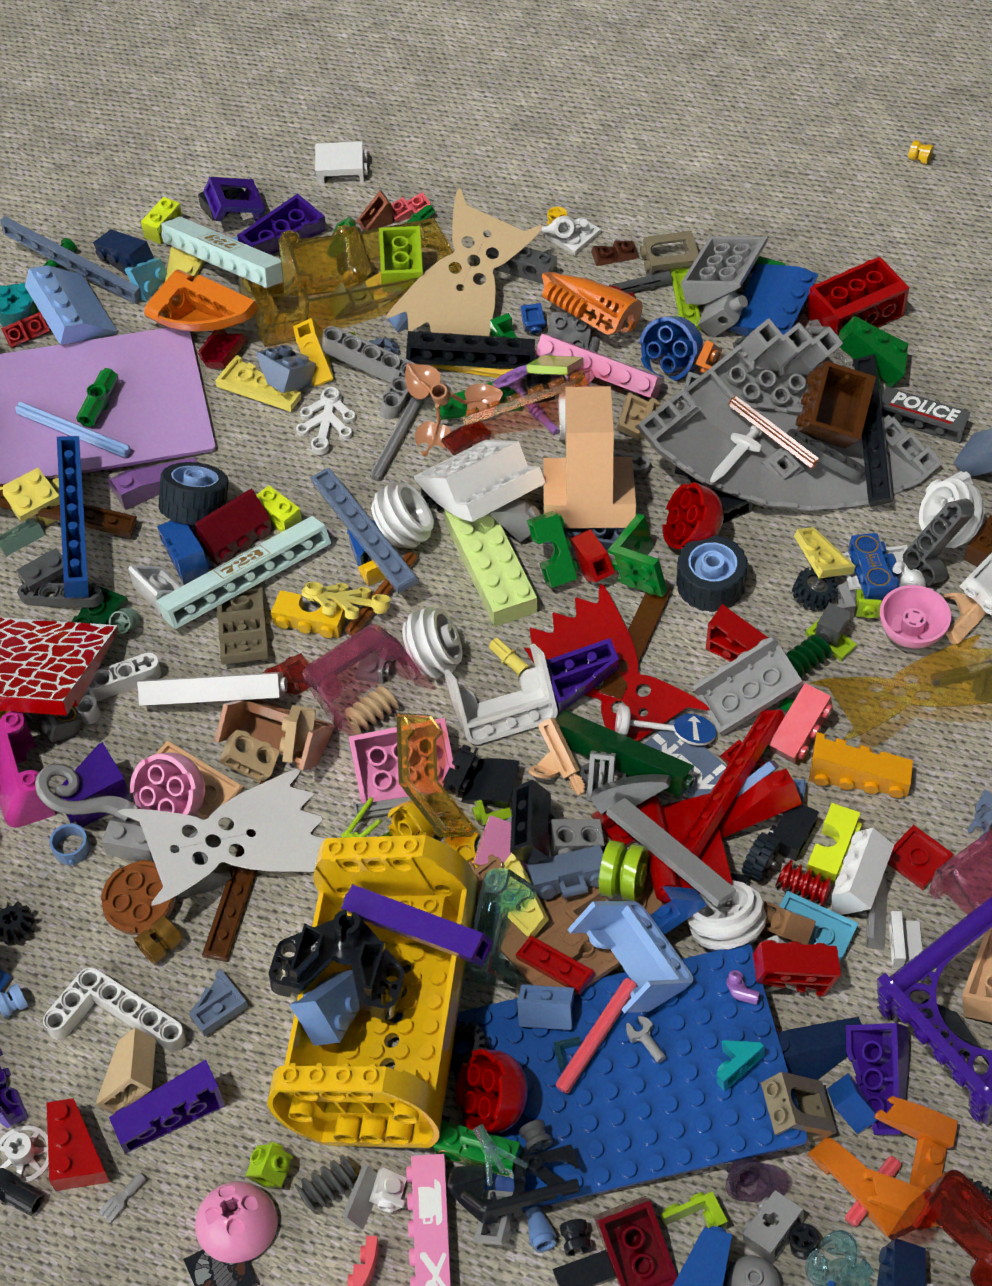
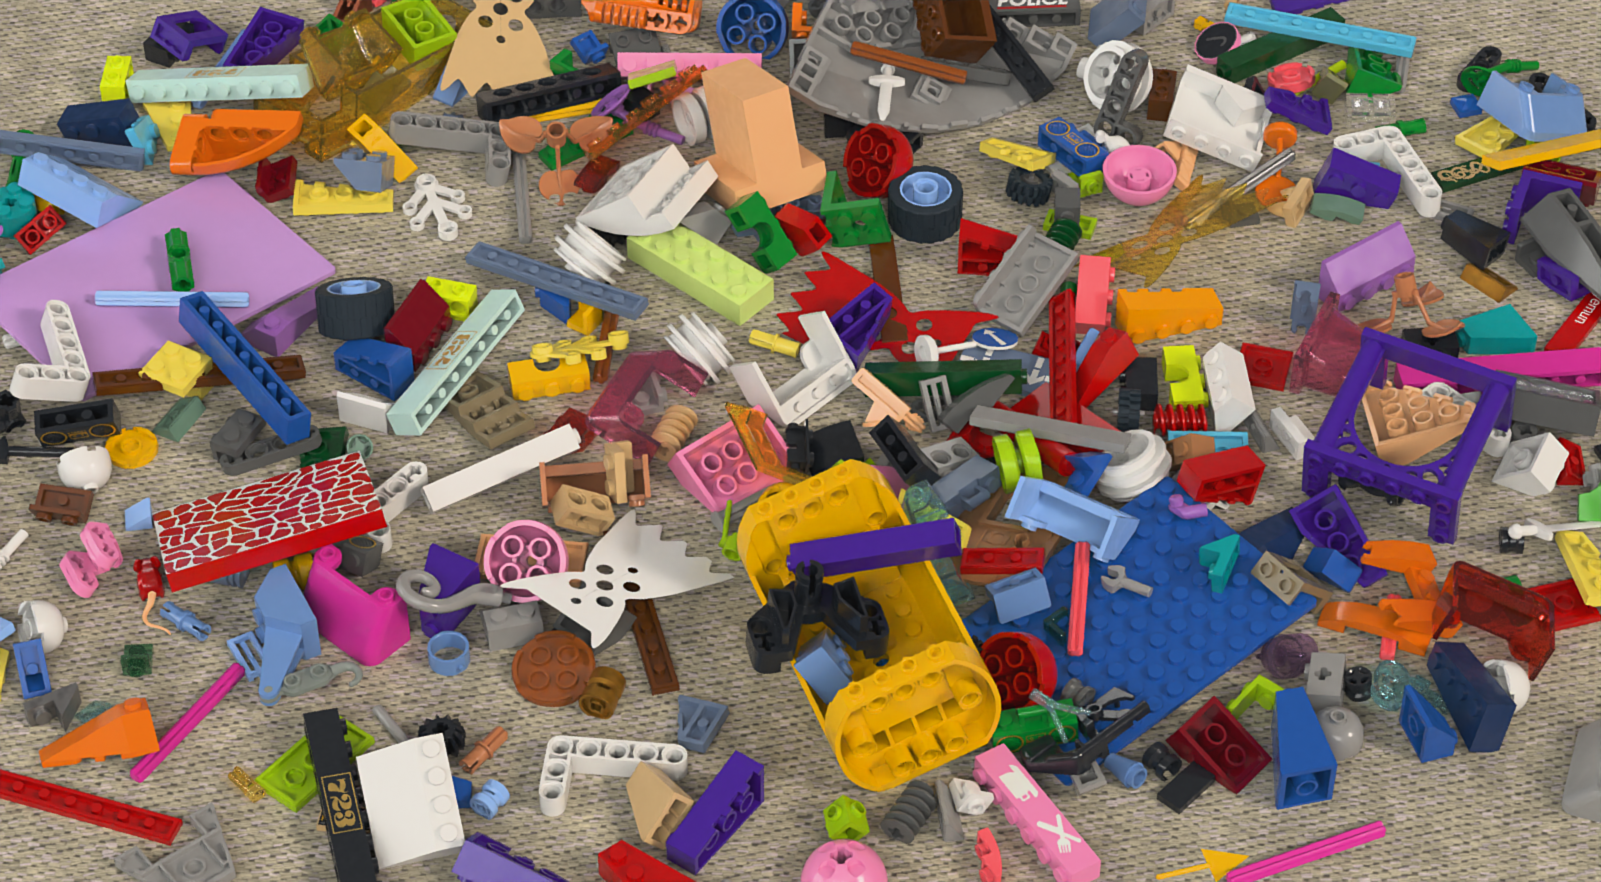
camera: 30 degrees left, 10 degrees down
(38, 949) = (484, 750): none -> nougat axle

